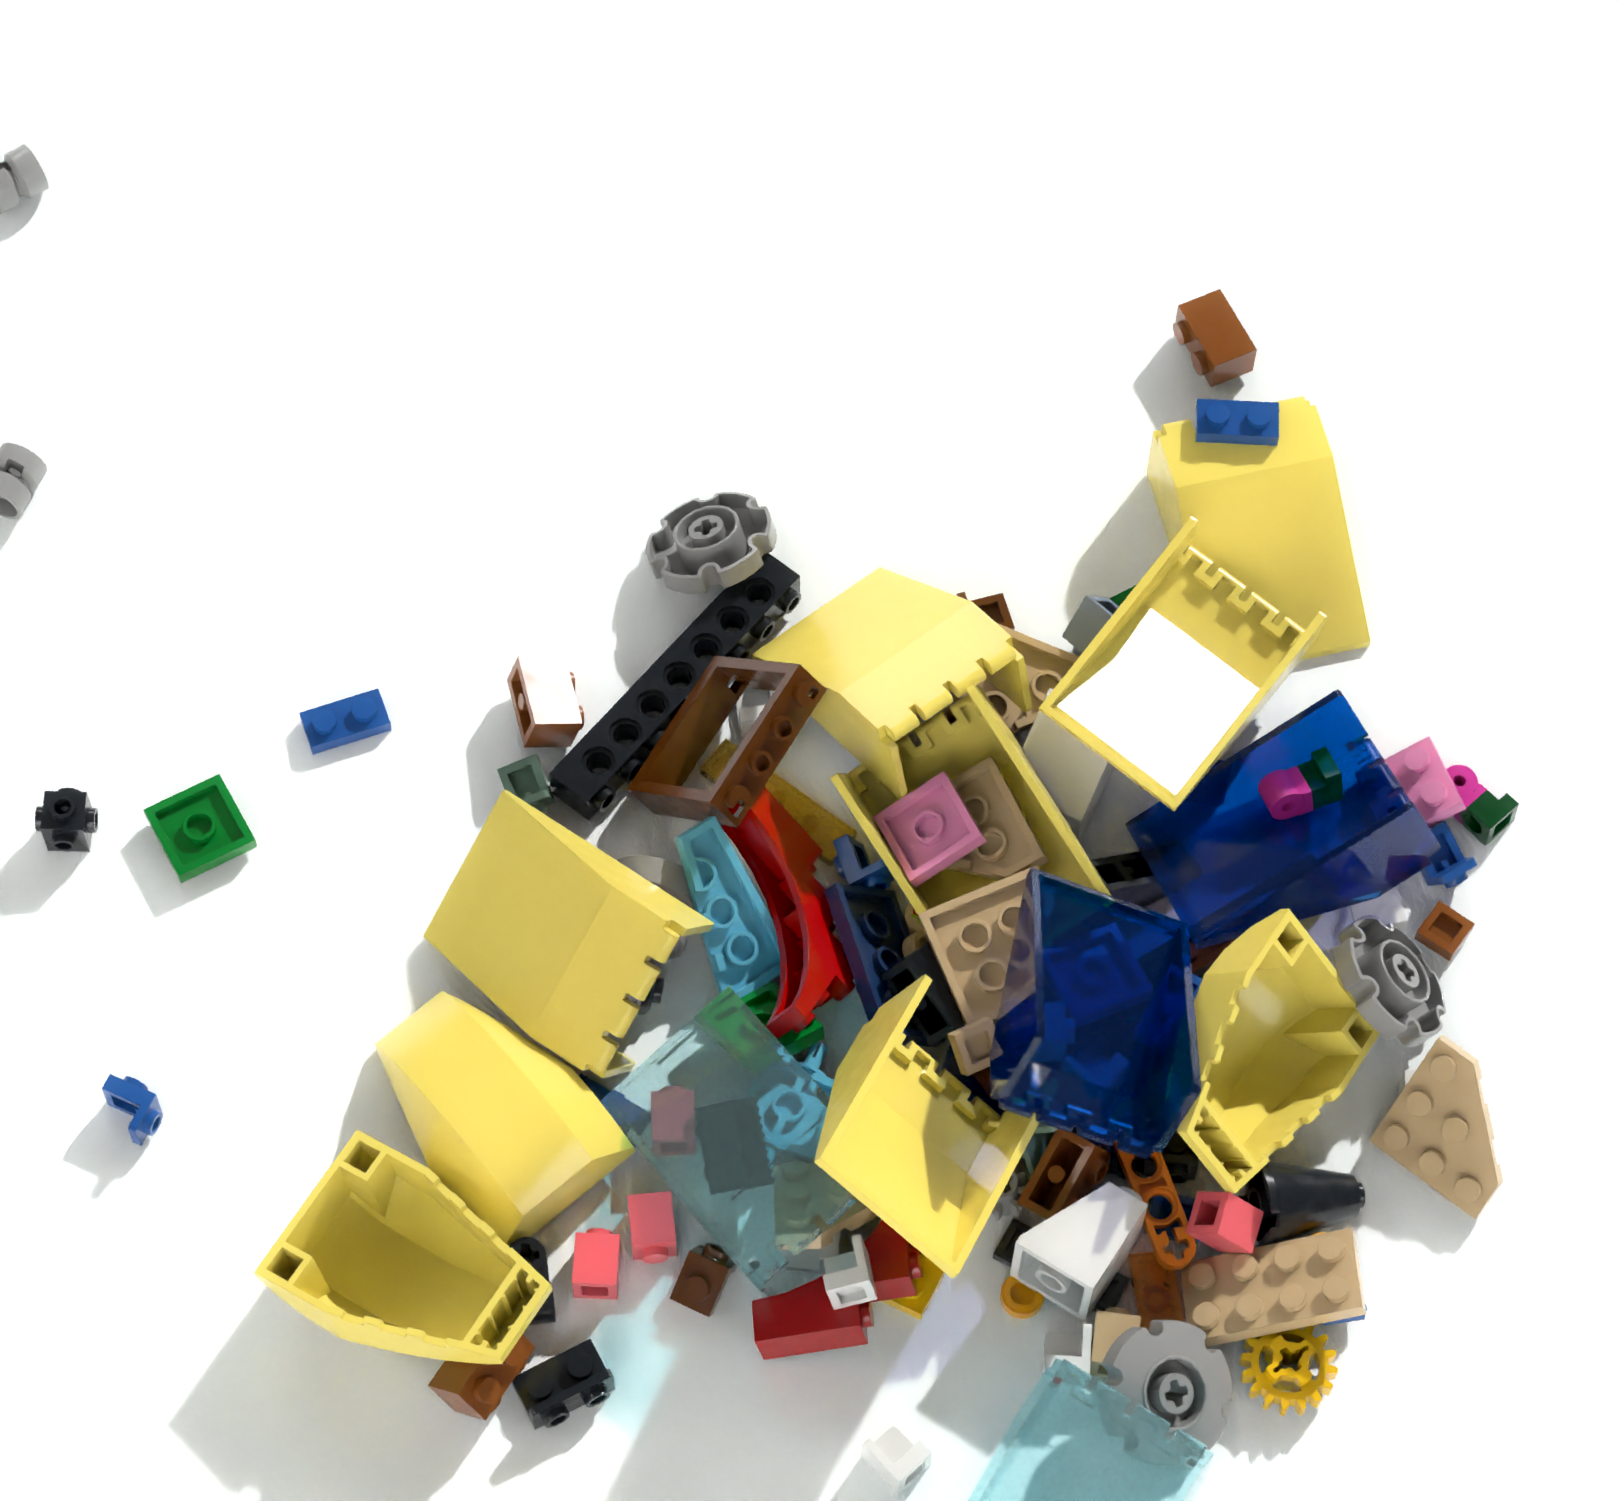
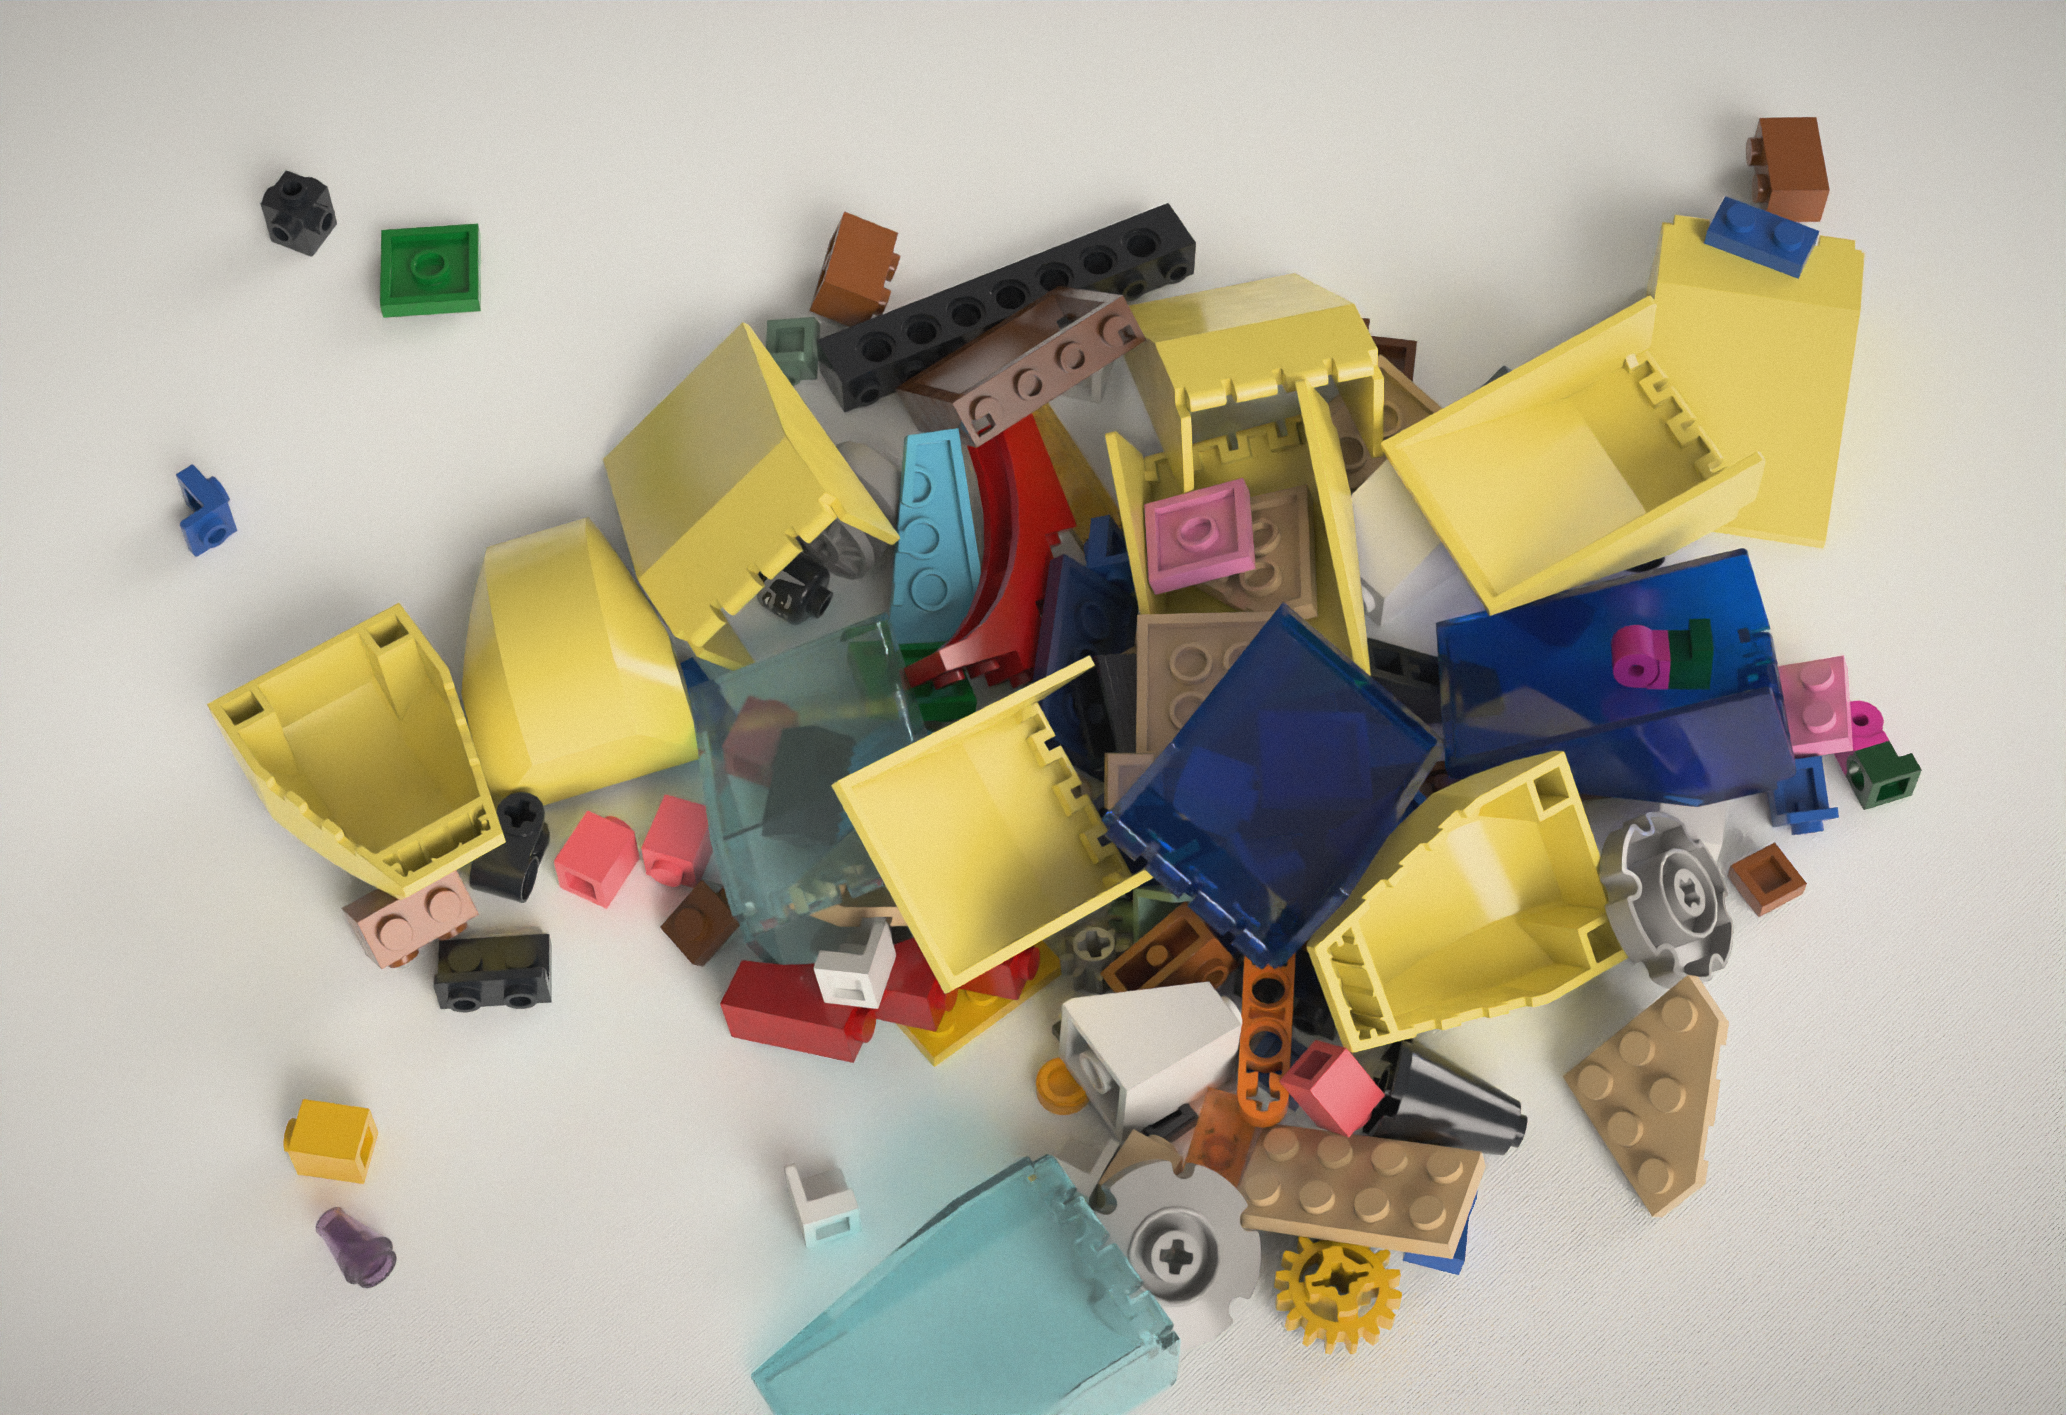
camera: 25 degrees right, 5 degrees down
(345, 721) = (640, 224): blue plate -> none
(711, 542) = (1116, 179): light grey piece -> none

